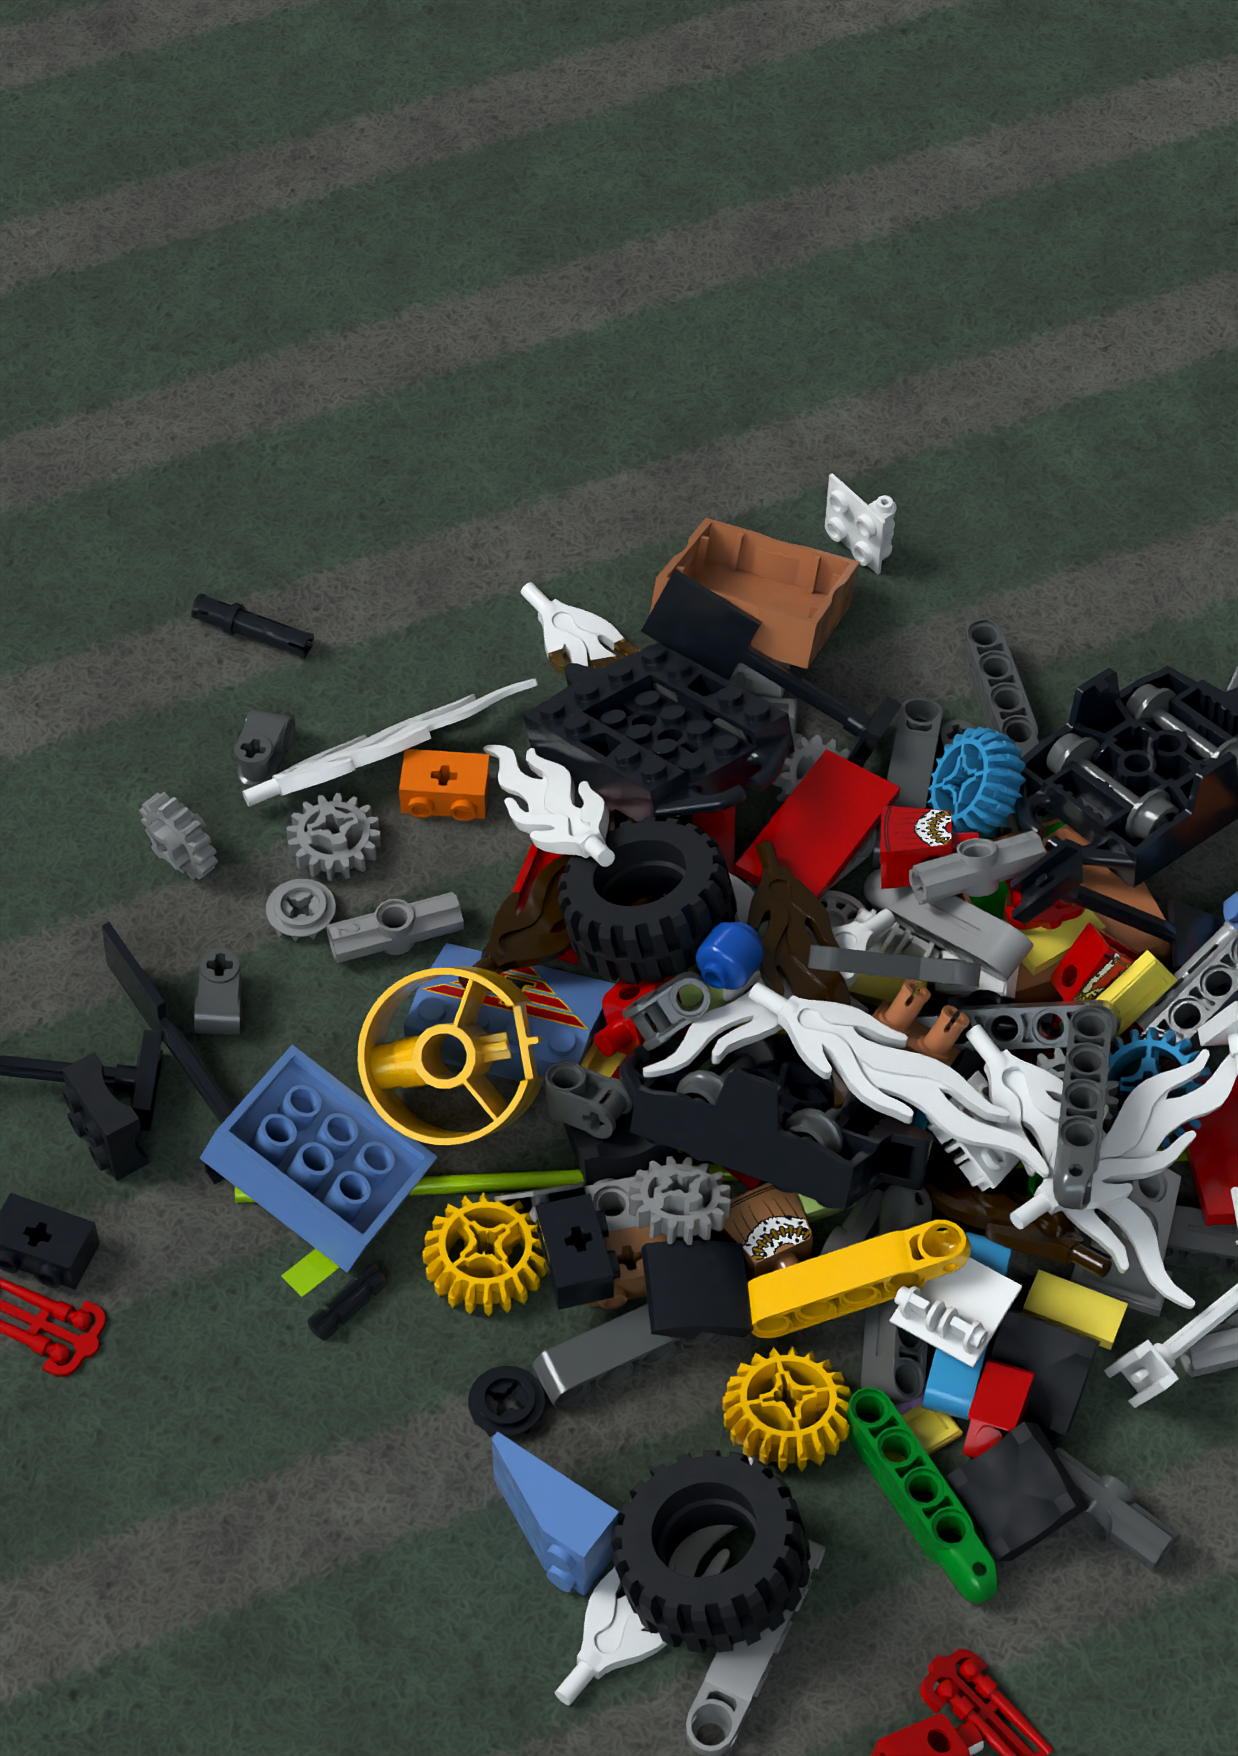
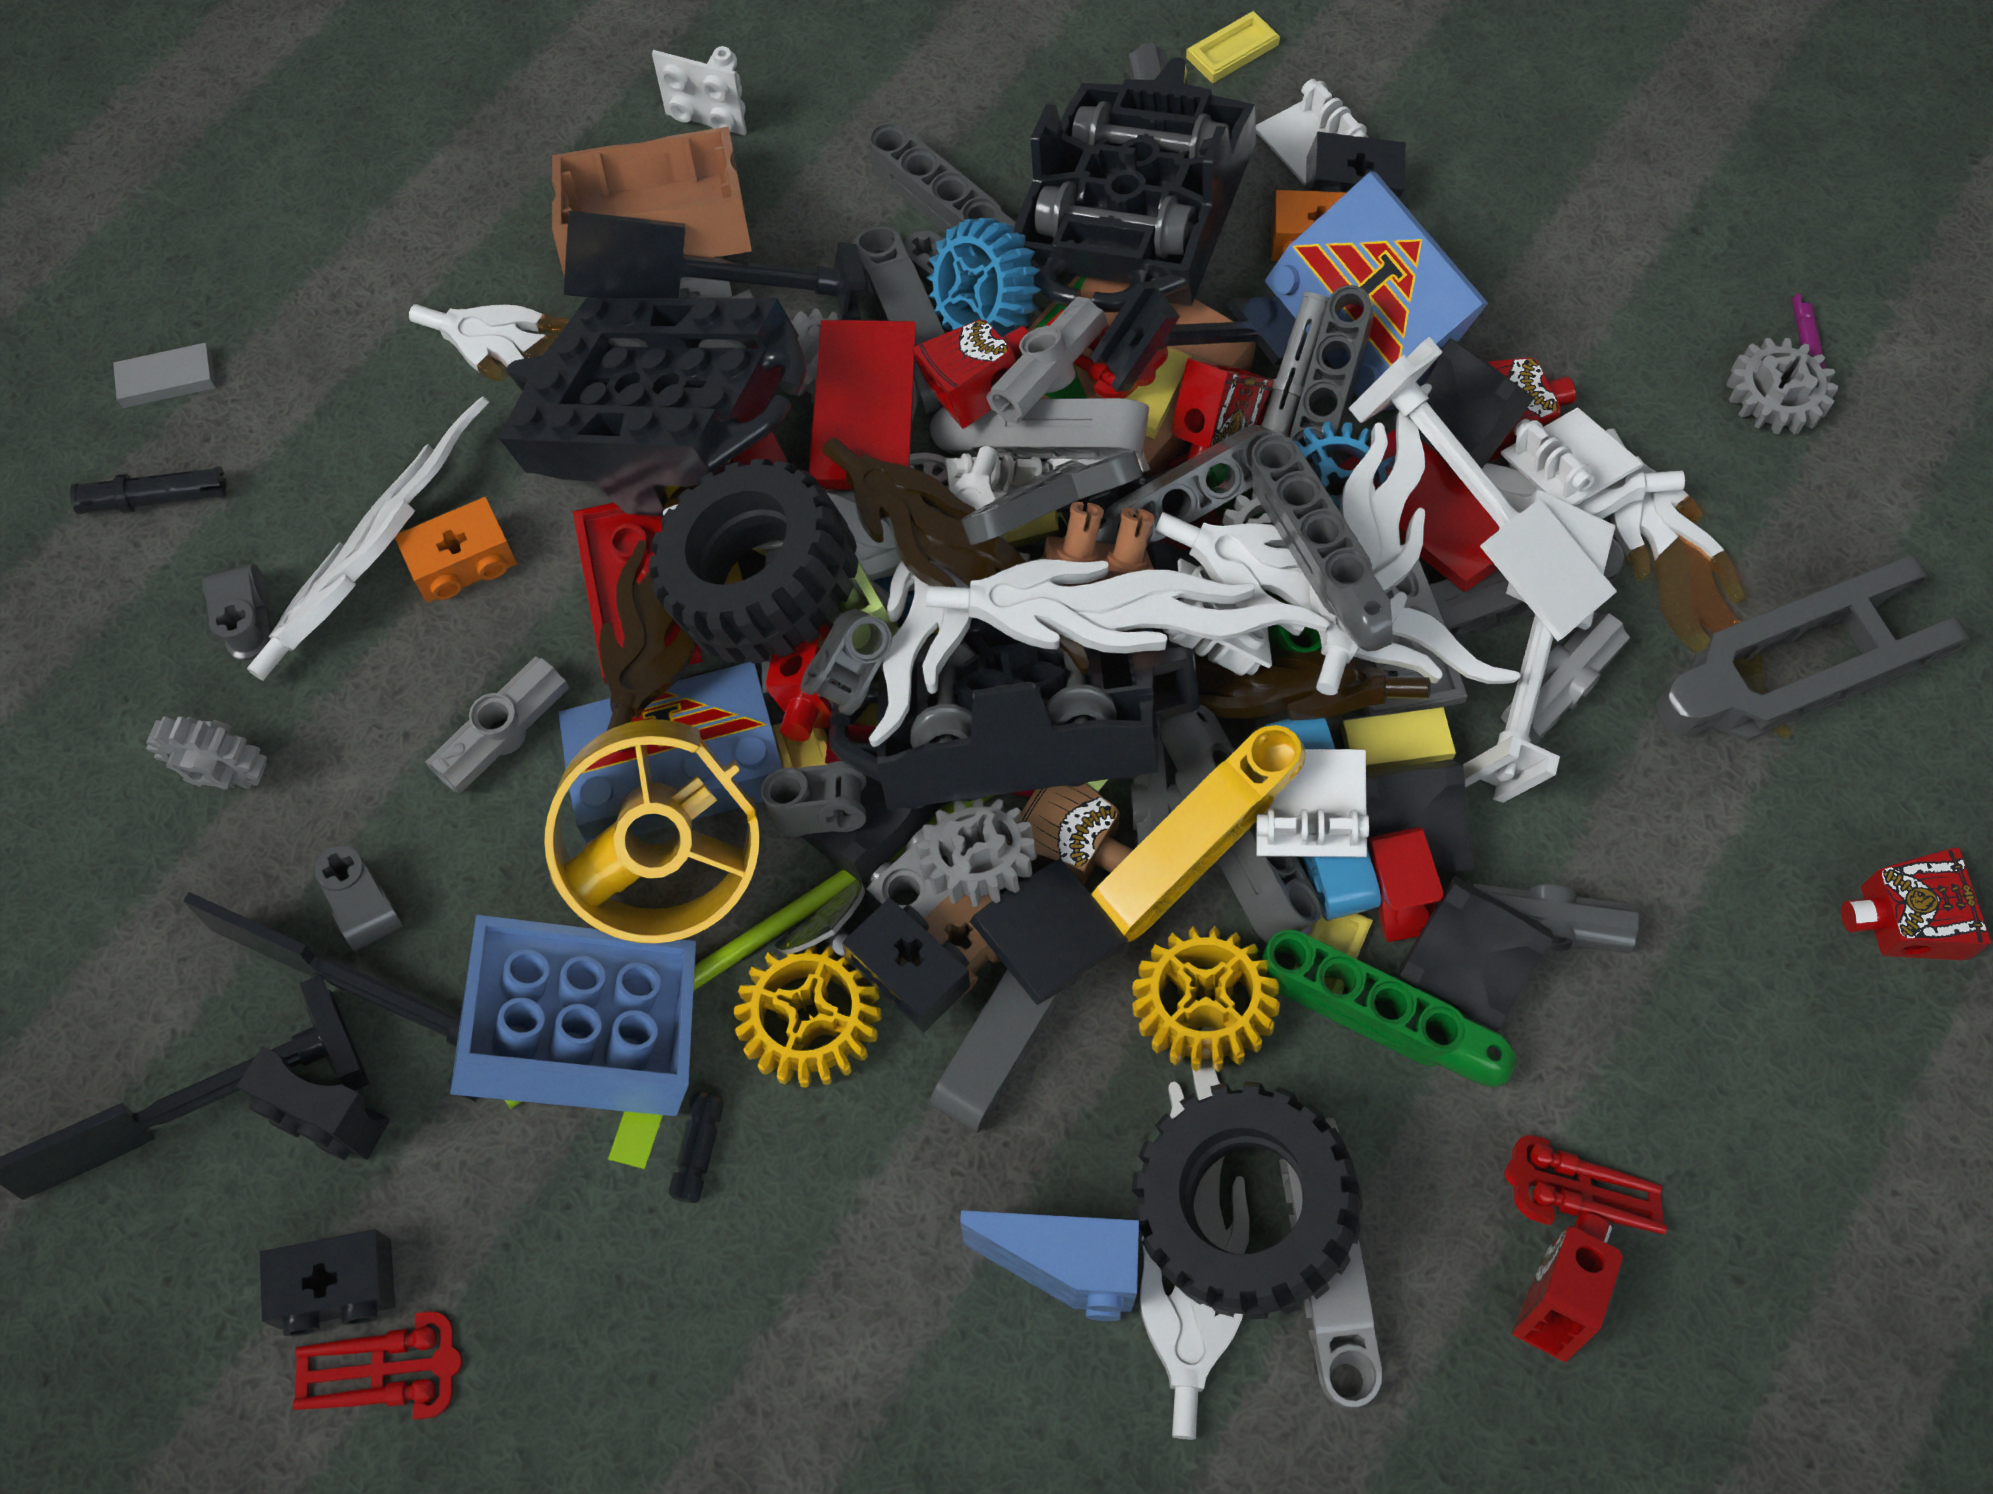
camera: 30 degrees left, 10 degrees up
(300, 893) = (373, 743): light grey gear -> none
(315, 544) = (164, 375): none -> light grey tile
(333, 836) = (366, 663): light grey gear -> none
(498, 1384) = (905, 1141): black gear -> none
(552, 815) = (596, 524): white piece -> none
(731, 954) = (879, 572): blue head -> none
(1138, 988) = (1262, 396): light yellow tile -> none

